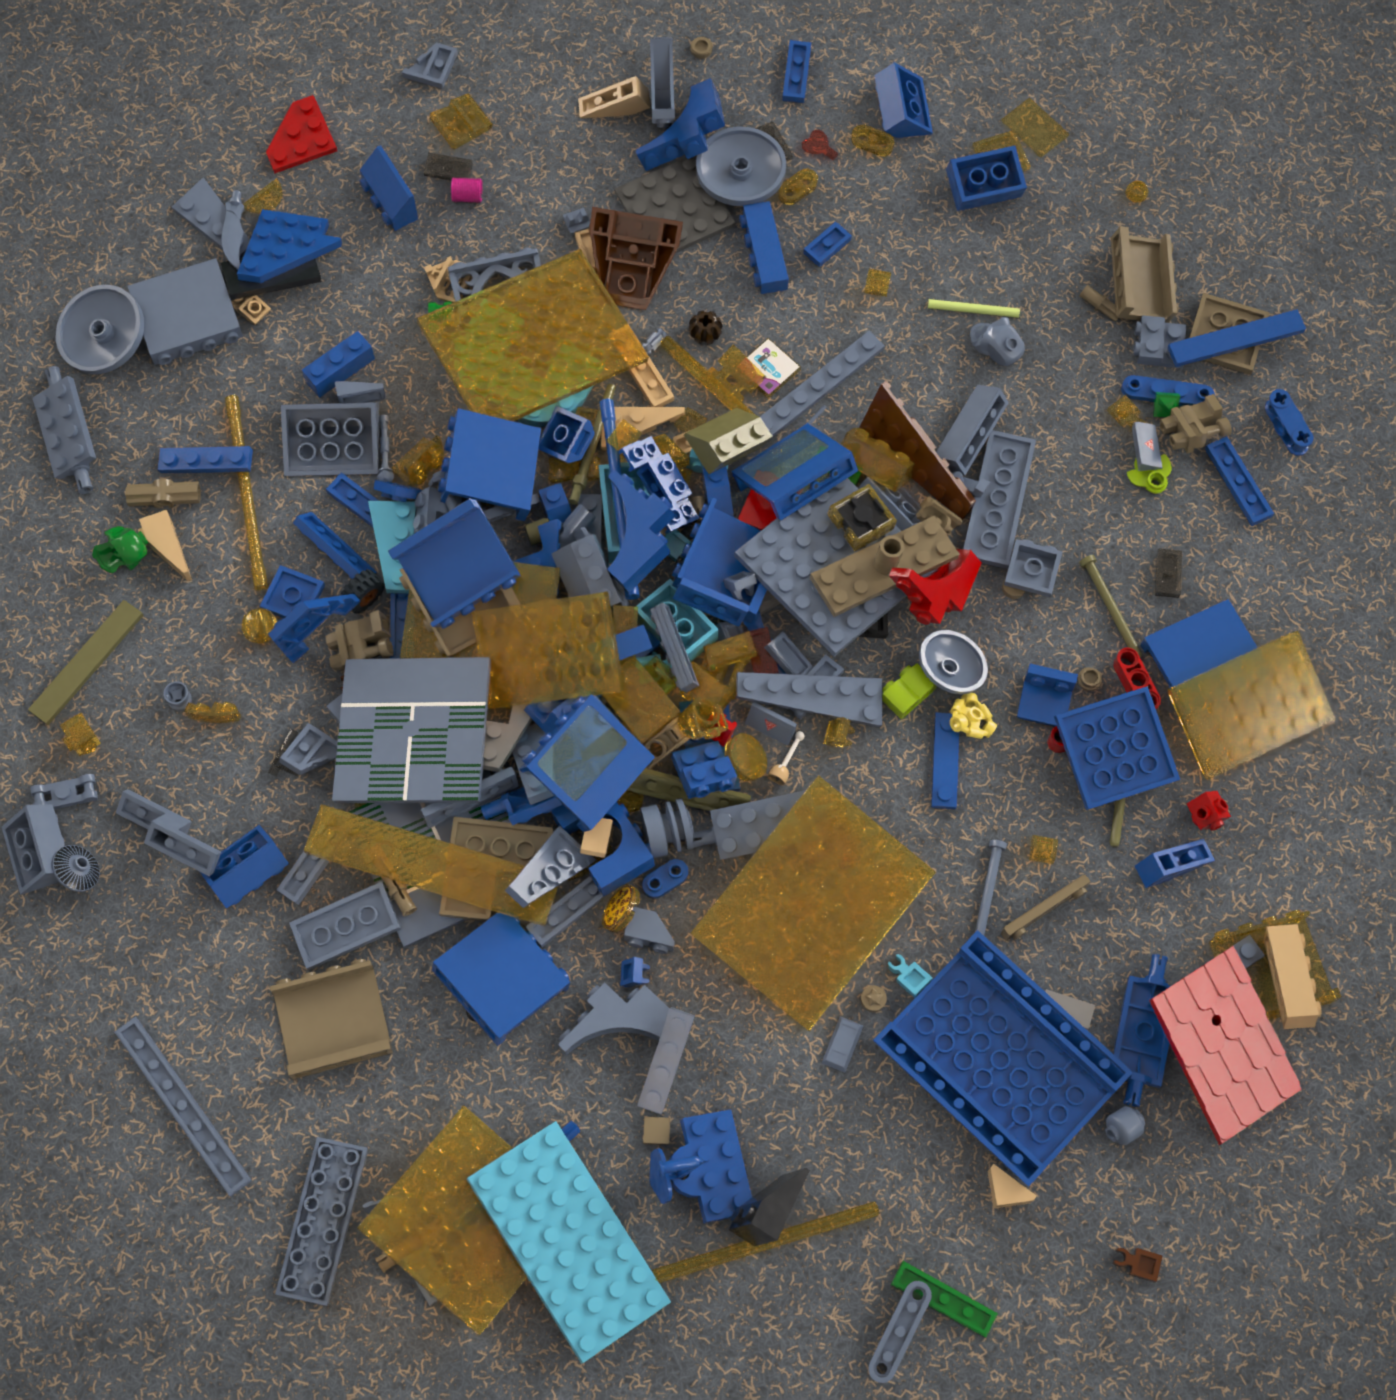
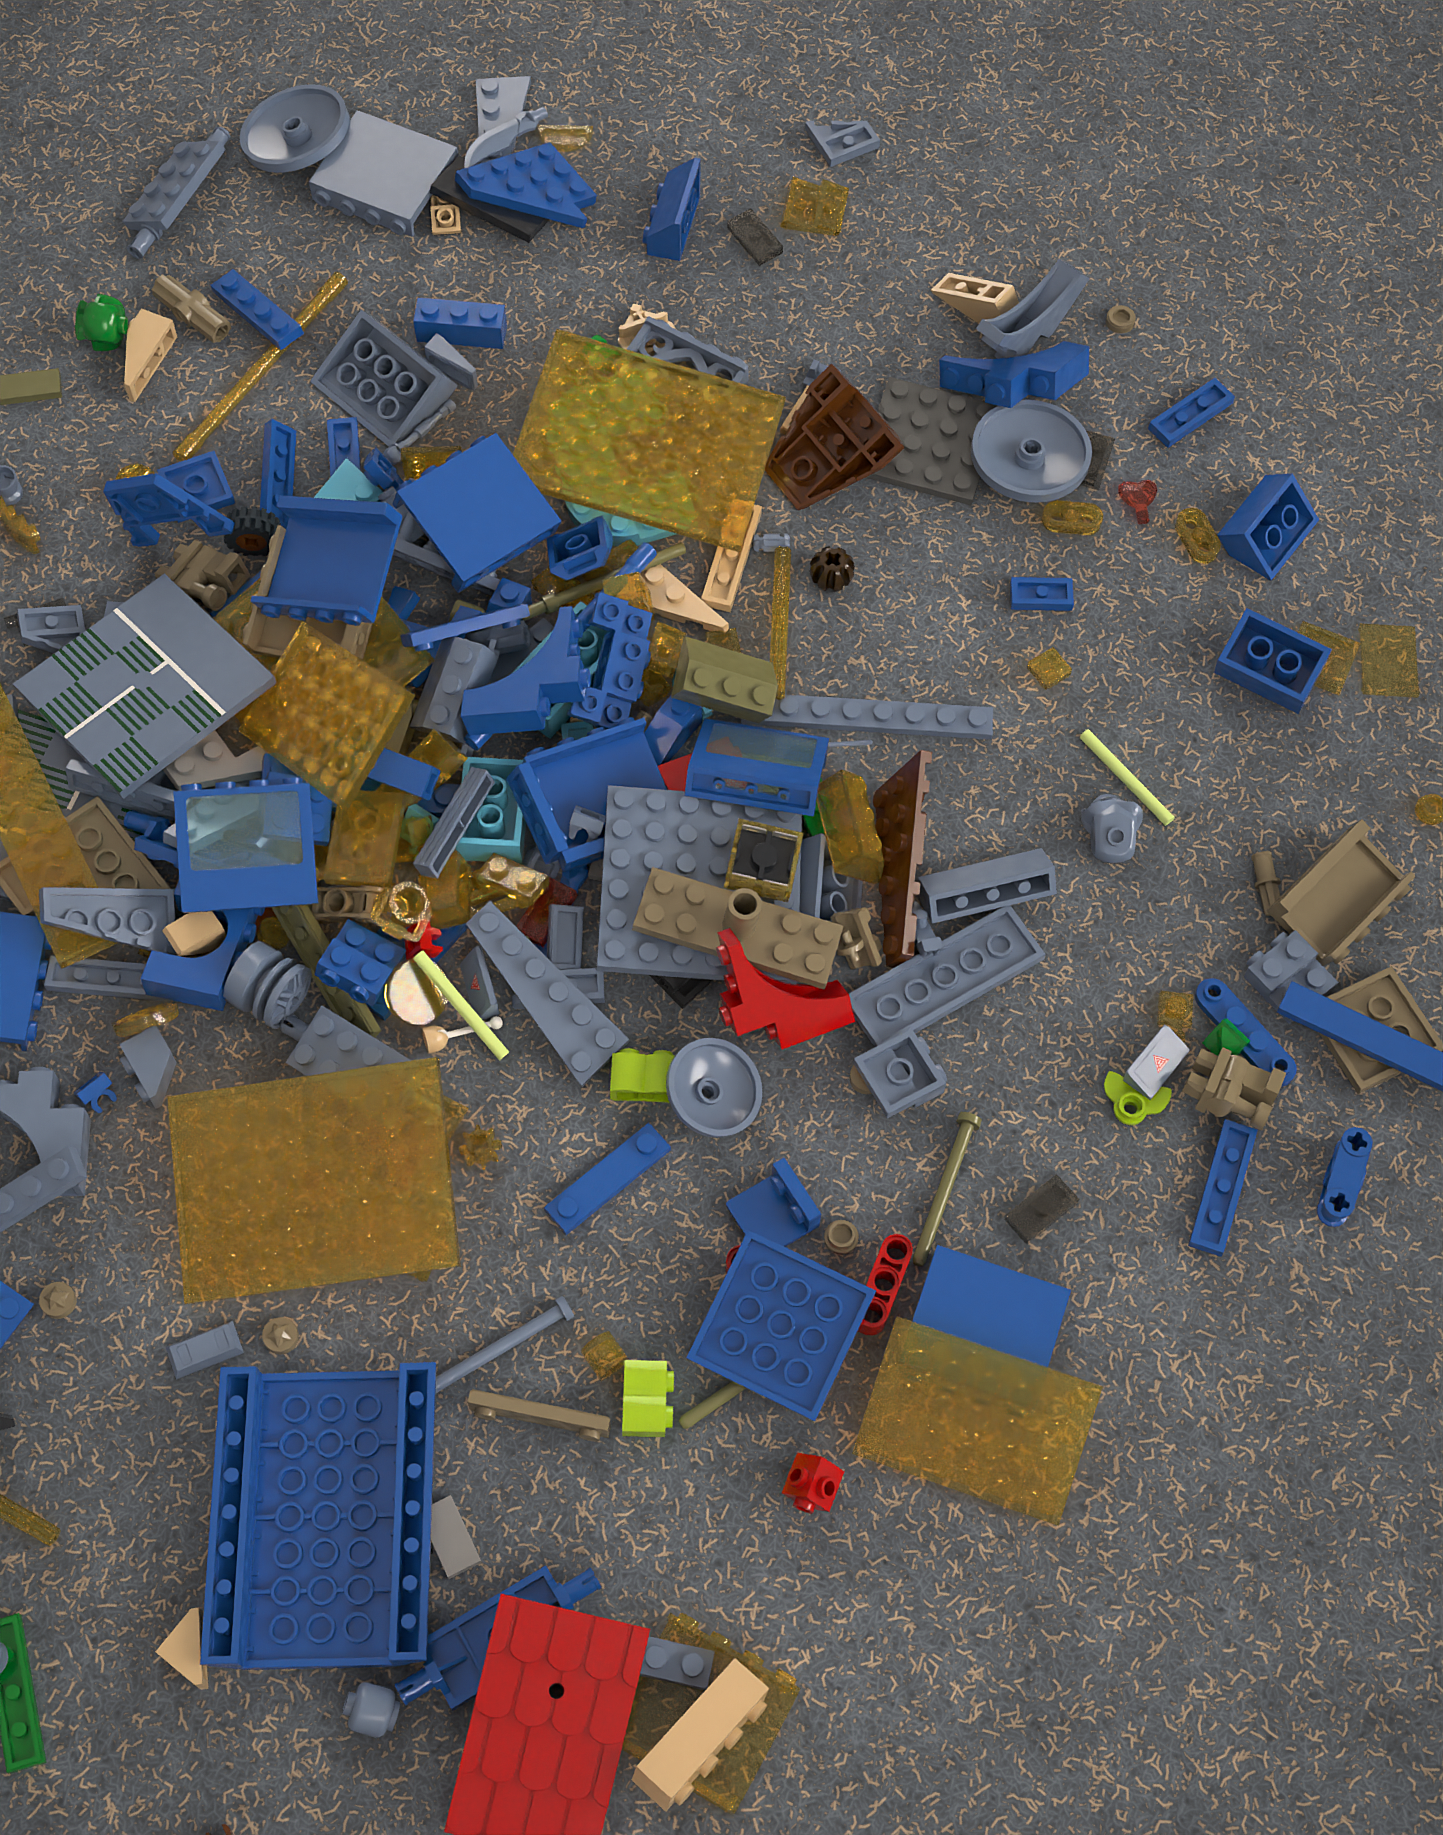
camera: 45 degrees right, 5 degrees down
(300, 136) = (656, 109): red plate -> none
(466, 190) = (746, 265): dark pink piece -> none
(561, 534) = (424, 638): none -> plate
(665, 878) = (222, 1034): blue plate -> none
(739, 1095) = (57, 1300): none -> dark tan tile
(741, 368) = (823, 636): clear yellow plate -> none
(765, 247) = (973, 545): blue brick -> none
(775, 365) = (854, 659): tile -> none
(778, 742) = (460, 1005): none -> yellowish green bar
(837, 732) = (530, 1050): clear yellow tile -> none
(872, 801) = (482, 1155): none -> clear yellow gear
(910, 977) = (336, 1351): medium azure plate -> none
(967, 716) = (677, 1159): light yellow piece -> none
(1086, 849) = (645, 1398): none -> lime brick
(1173, 862) = (721, 1500): blue slope -> none

